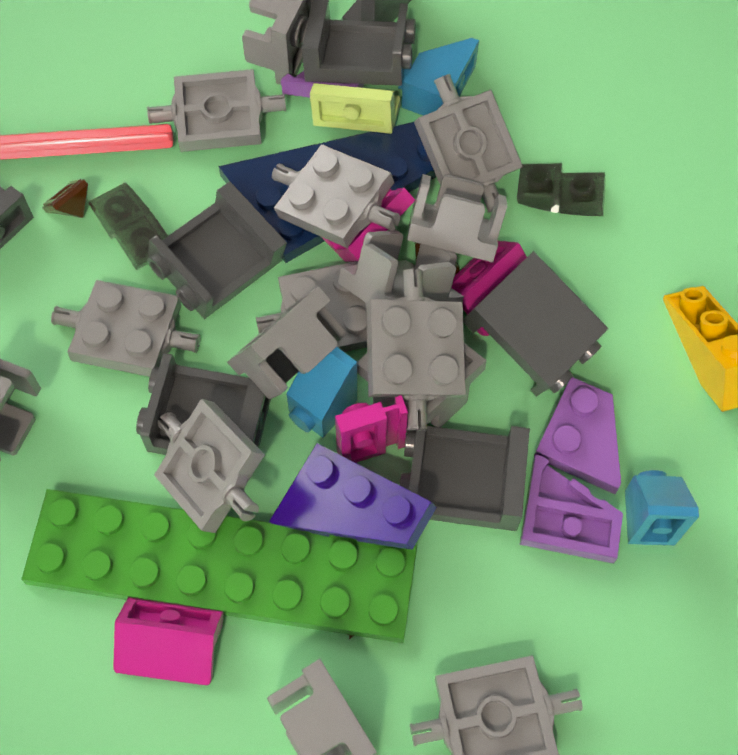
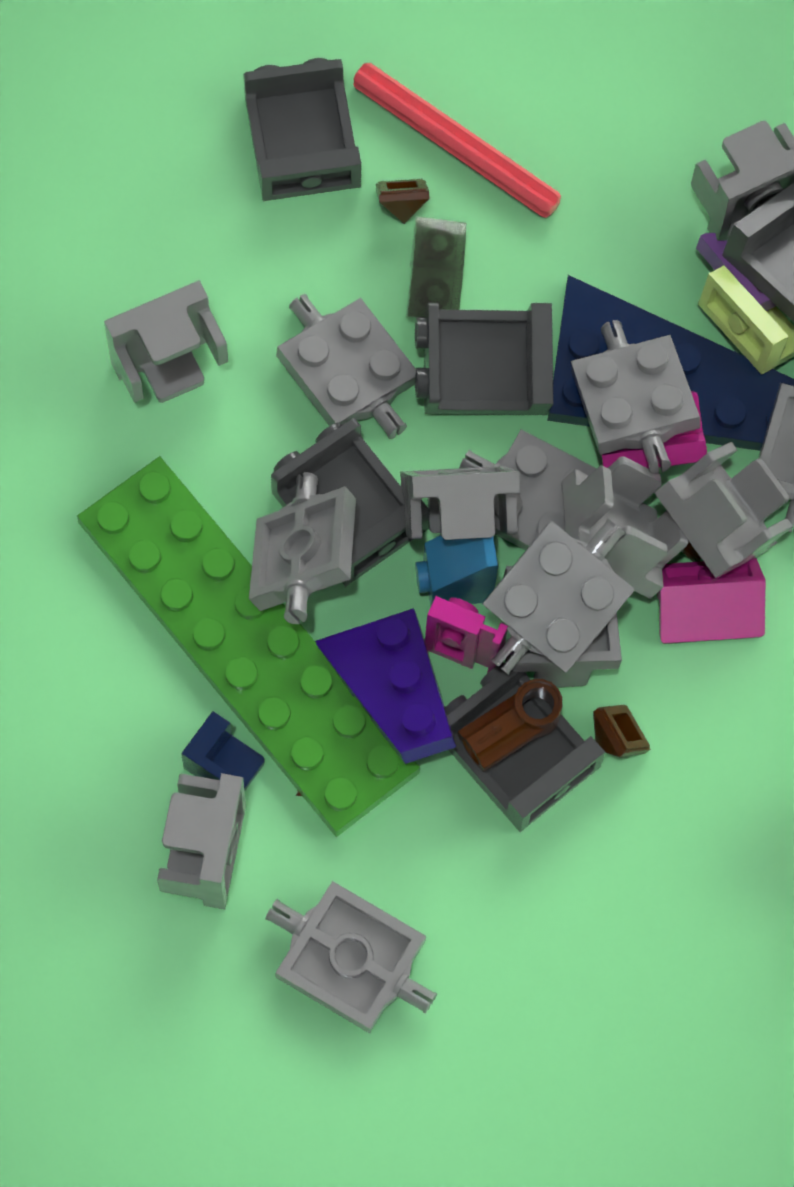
camera: 40 degrees right, 5 degrees up
(166, 641) = (147, 665): dark pink panel -> none
(216, 110) = (618, 215): light grey plate -> none
(276, 659) = (217, 752): none -> dark blue panel
(453, 463) = (508, 726): none -> reddish brown piece
(518, 412) = (619, 732): none -> reddish brown slope
(539, 323) = (707, 669): dark grey panel -> none
(568, 518) = (571, 856): medium lavender wing -> none
(584, 436) = (658, 802): medium lavender wing -> none
(658, 509) = (650, 914): dark azure slope -> none

